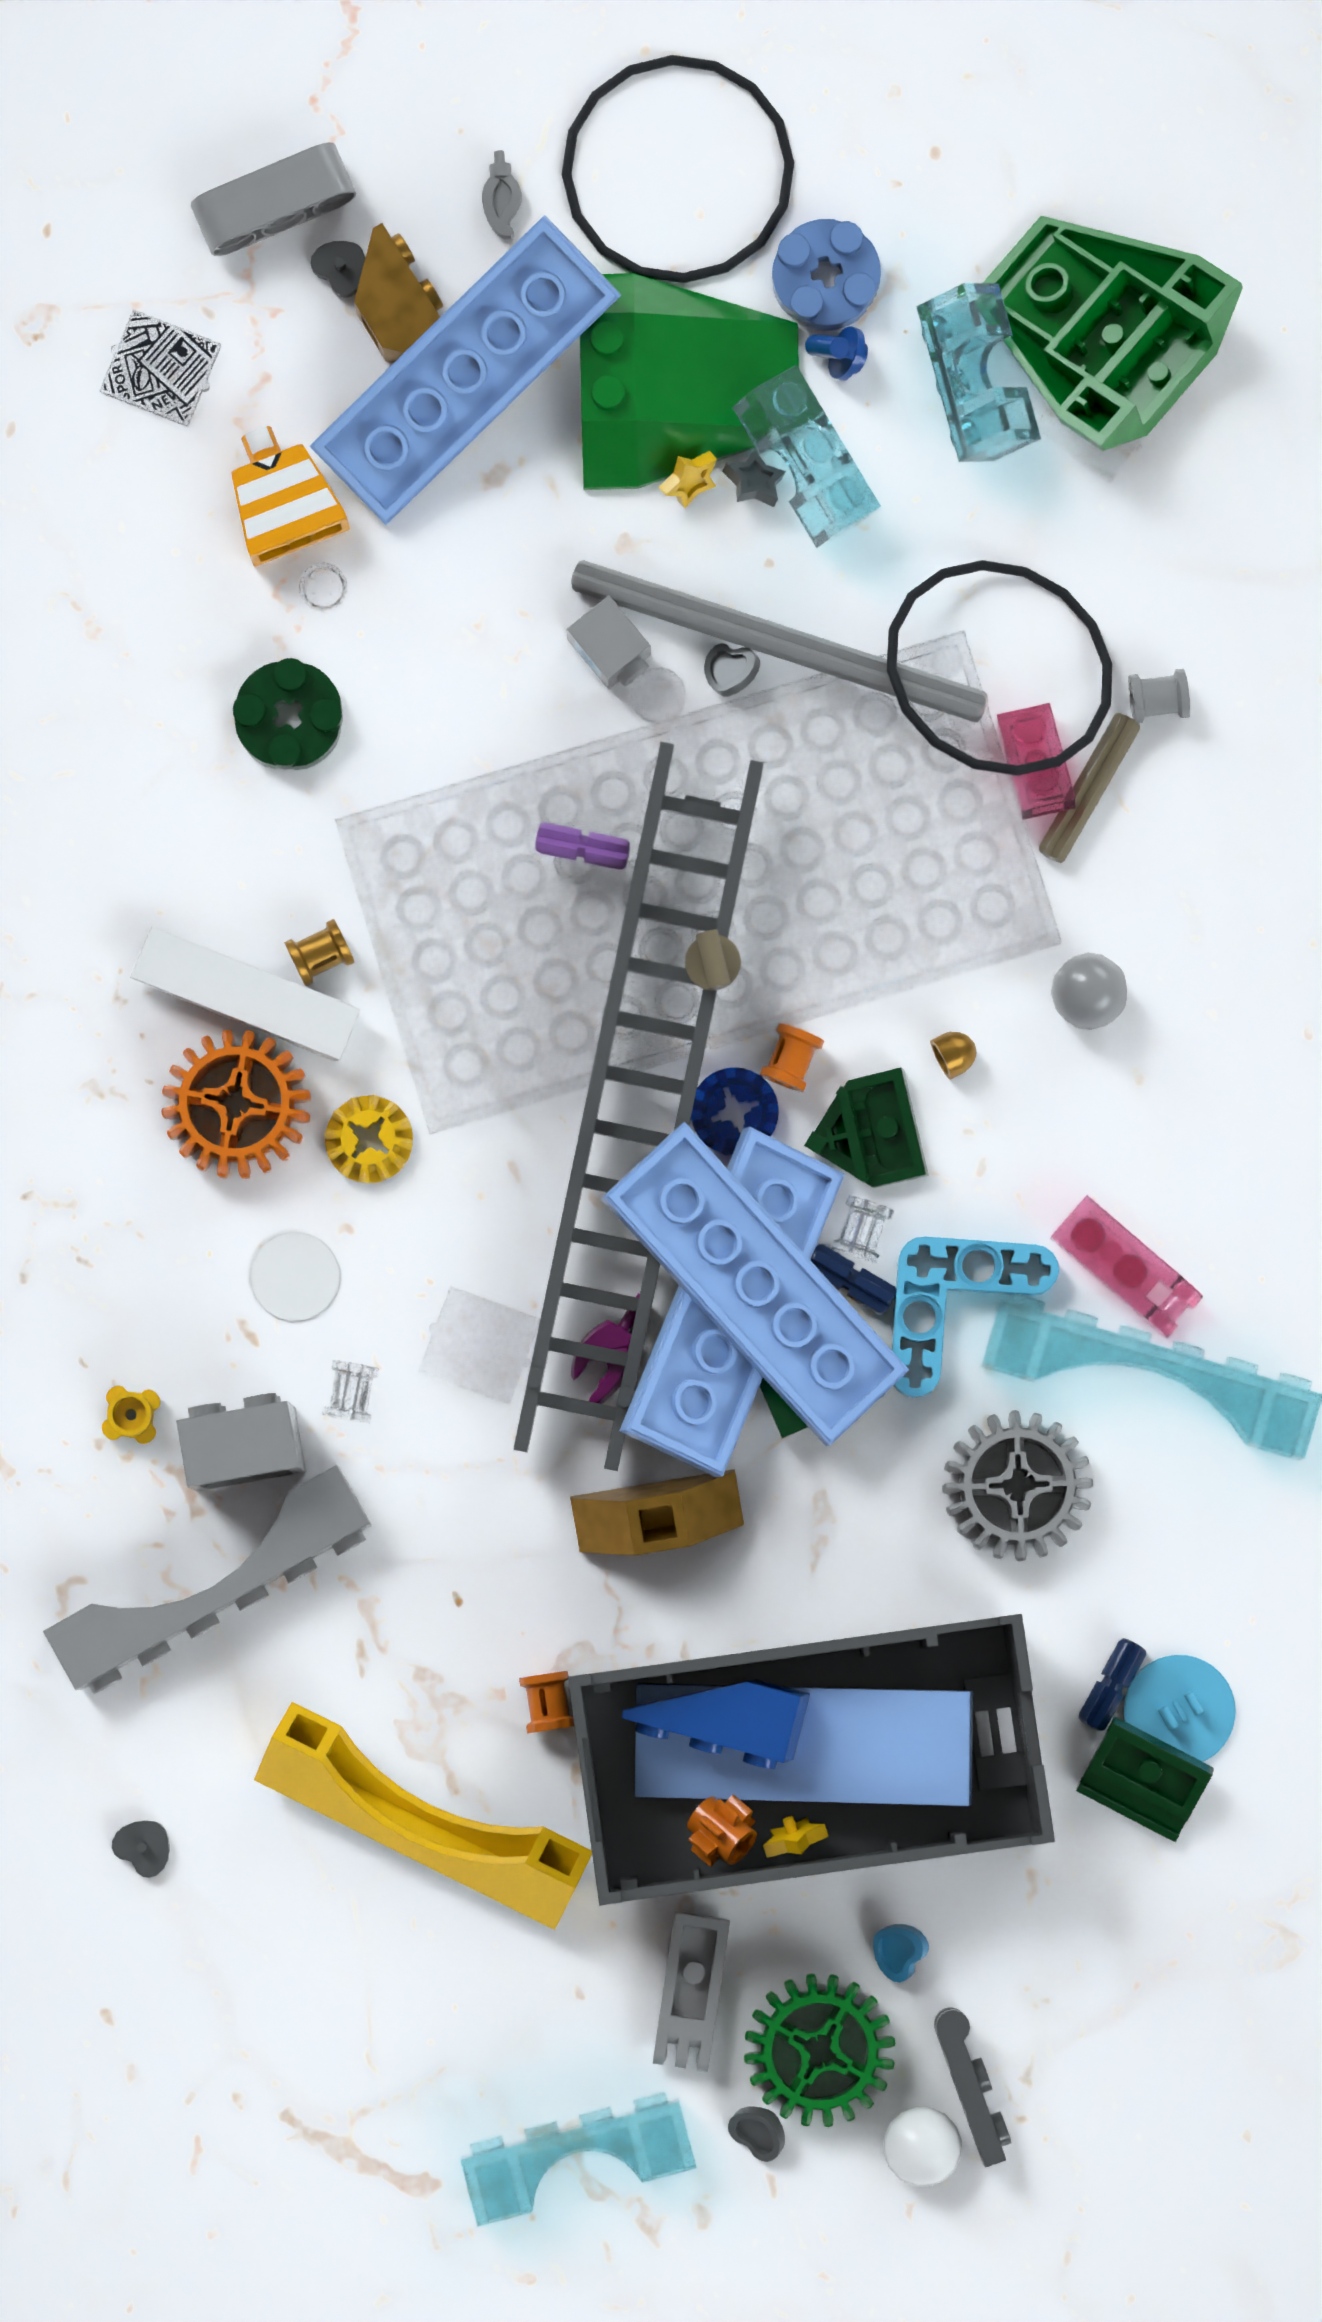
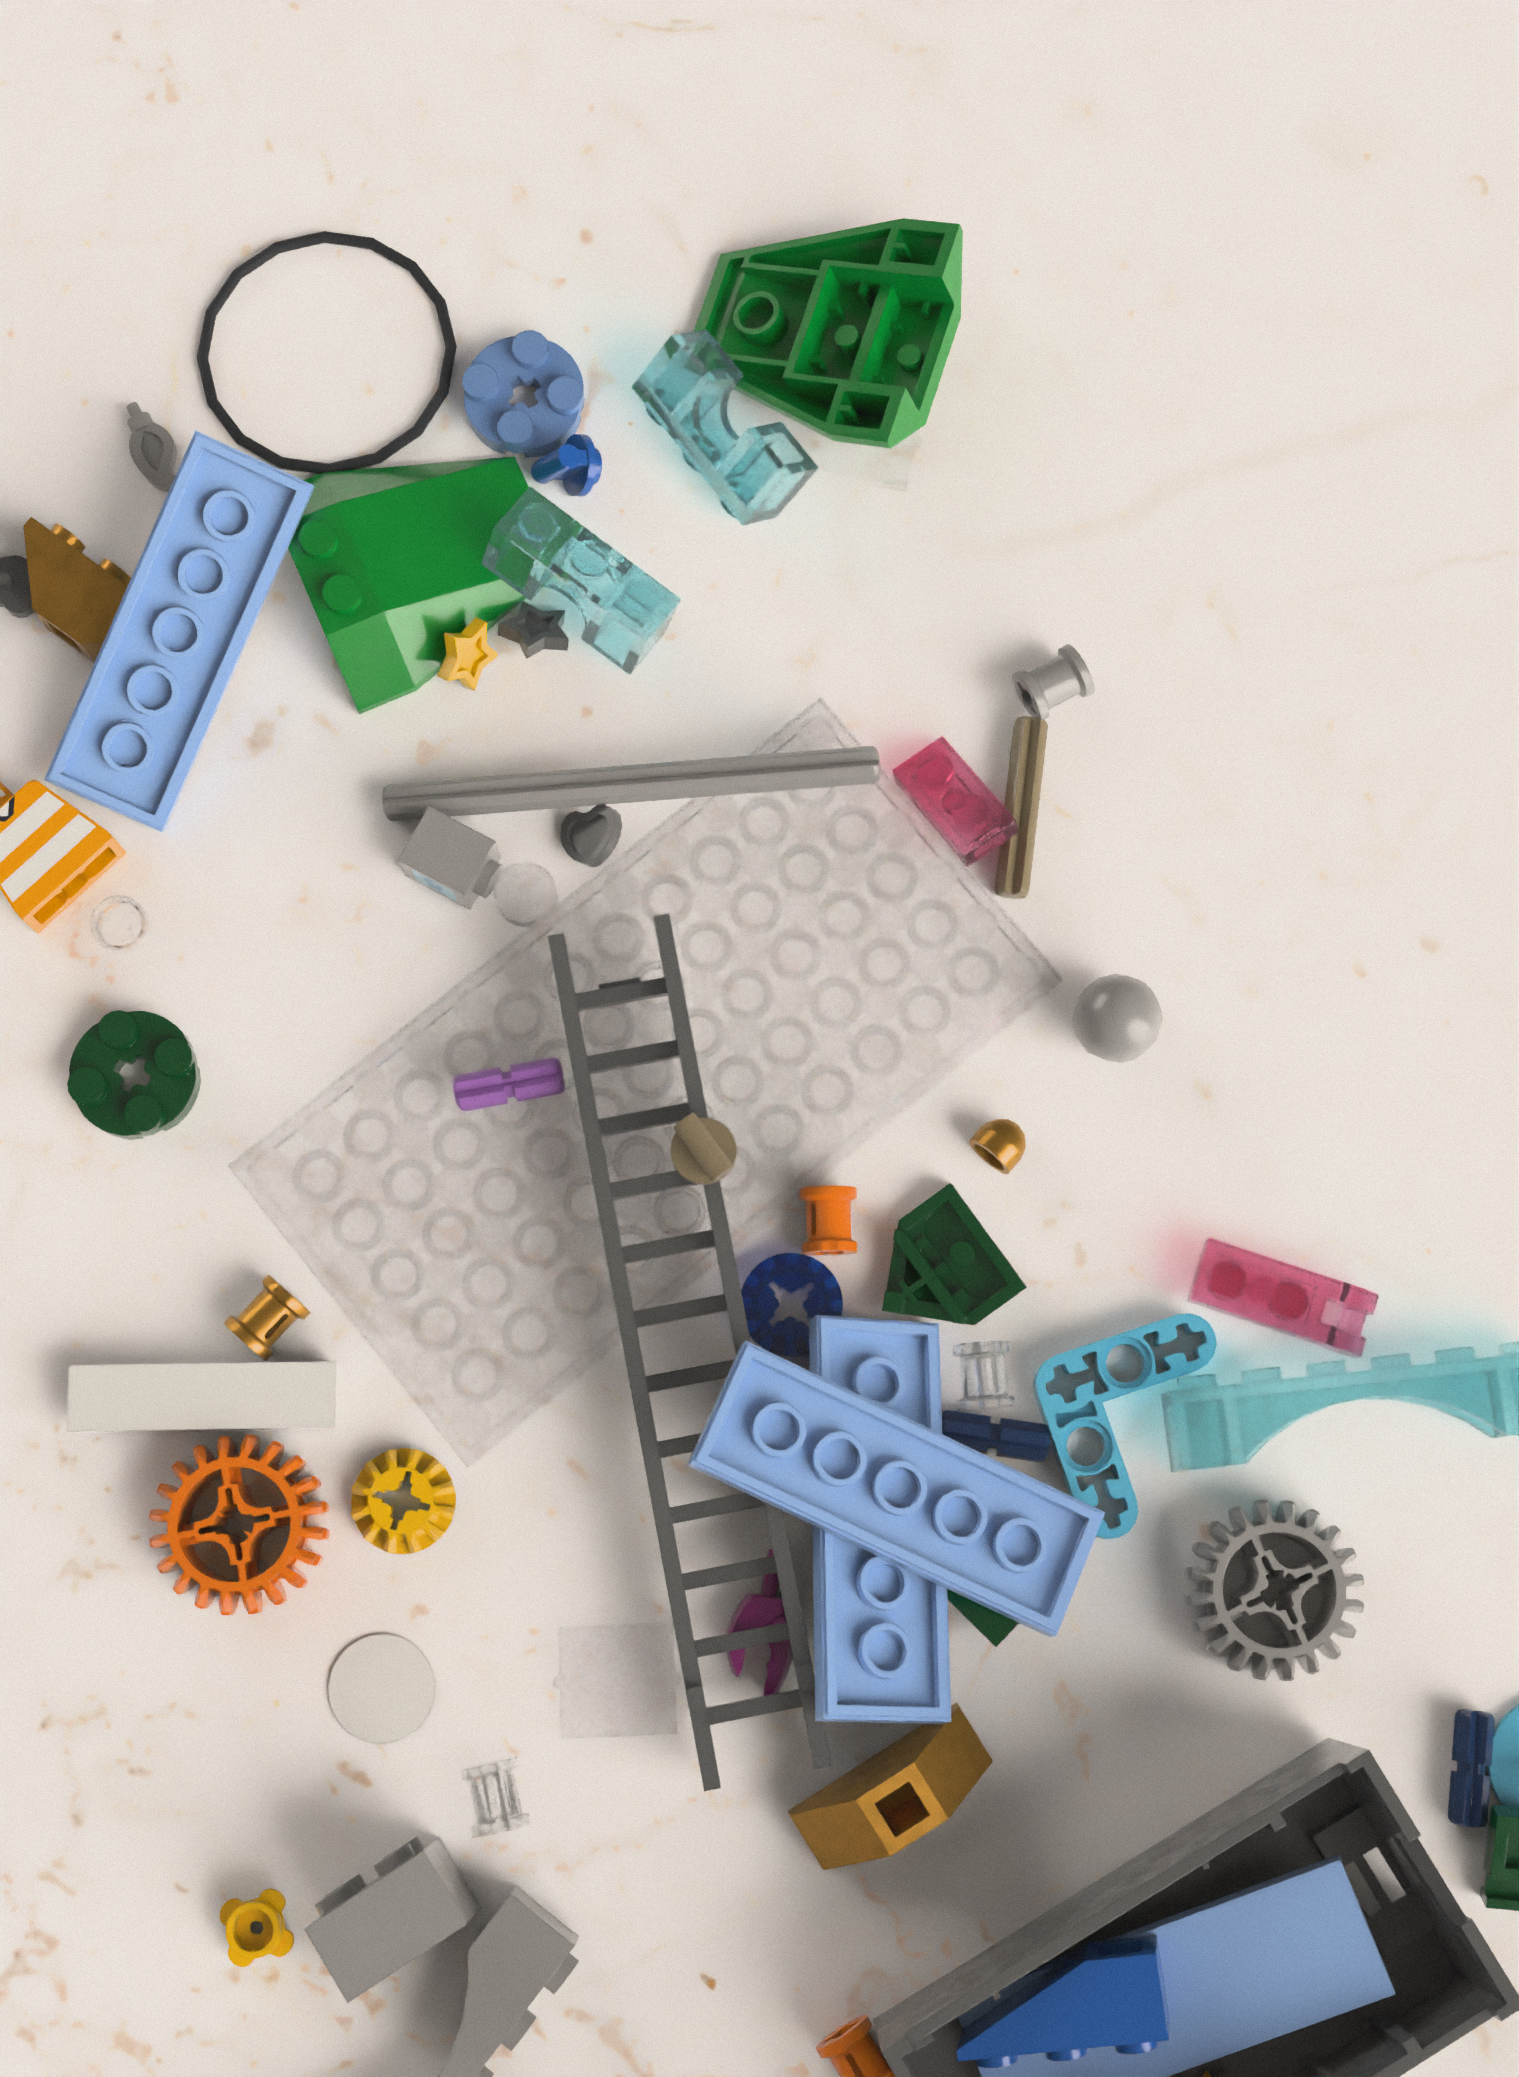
camera: 25 degrees left, 5 degrees down
(930, 736) = (859, 819): black piece -> none

